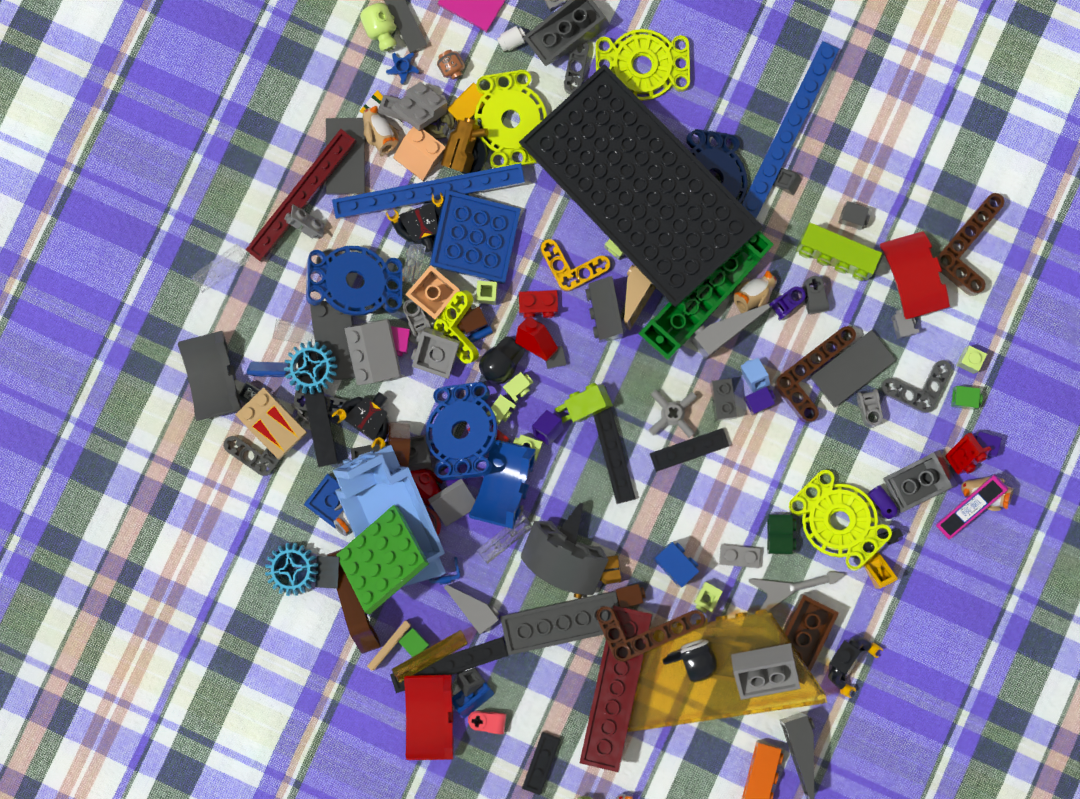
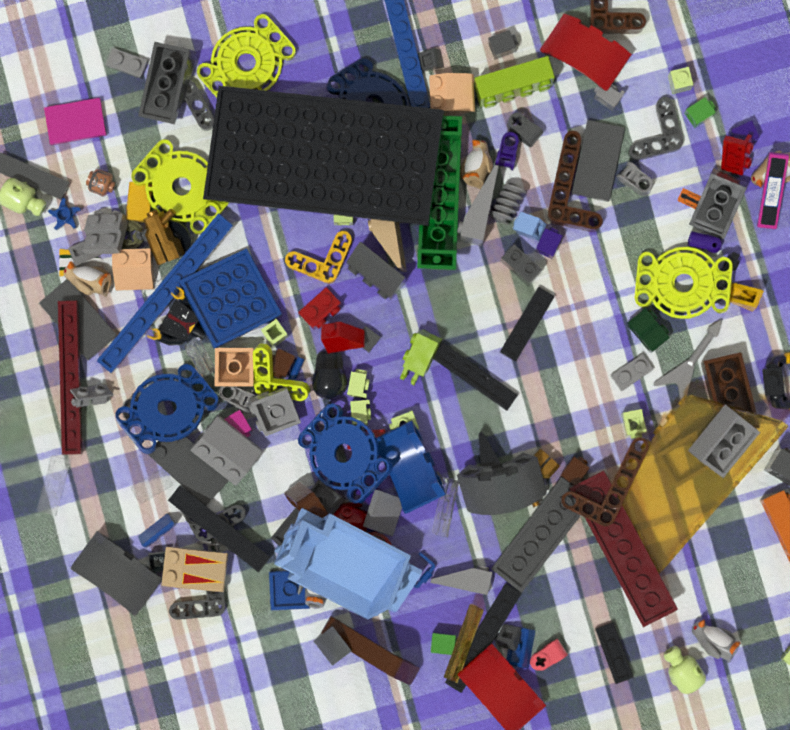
camera: 35 degrees left, 0 degrees up
(290, 560) = (314, 653): medium azure gear -> none
(302, 370) = (194, 493): medium azure gear -> none
(367, 417) = (263, 503): black torso -> none
(382, 559) = (368, 599): bright green plate -> none
(389, 645) = (426, 660): tan tile -> none
(511, 39) = (130, 124): white brick -> none
(547, 427) = (407, 396): dark purple brick -> none
(676, 564) = (590, 418): blue brick -> none
(679, 407) = (490, 316): light grey bar -> none
(697, 658) = (666, 474): black piece -> none
(753, 342) = (507, 202): none -> light grey piece
(782, 220) = (452, 93): none -> light nougat slope
(900, 457) = (689, 198): none -> orange sticker

